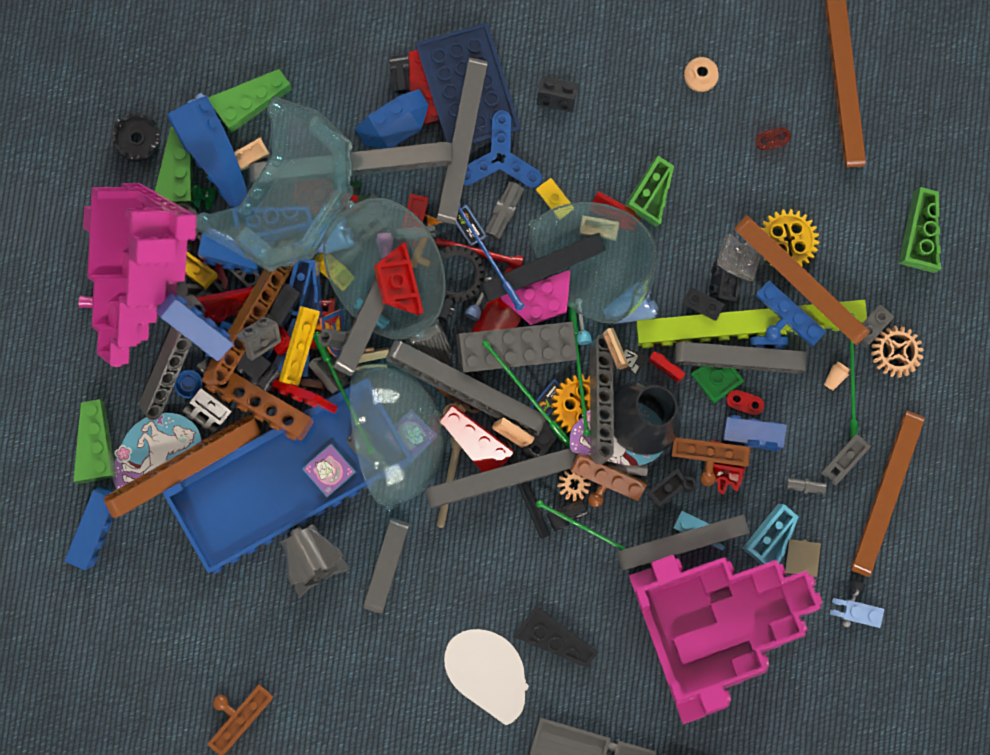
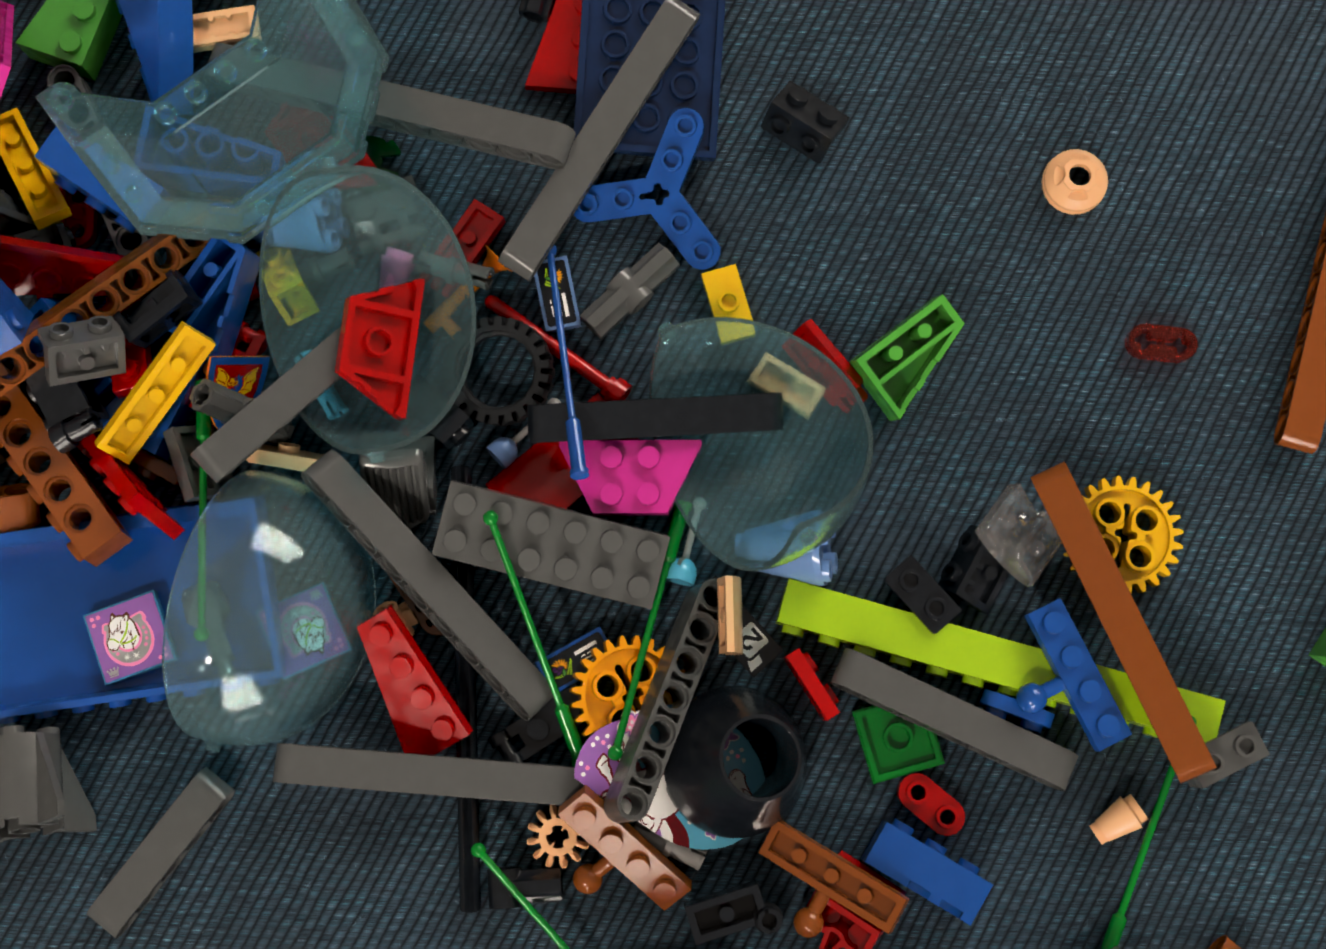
camera: 25 degrees right, 0 degrees up
(199, 194) = (104, 61): dark green piece -> none
(394, 121) = (498, 59): blue wedge -> none
(450, 477) = (338, 739): dark tan piece -> none
(513, 432) = (484, 697): light nougat plate -> none
(891, 345) = (1263, 847): light nougat gear -> none

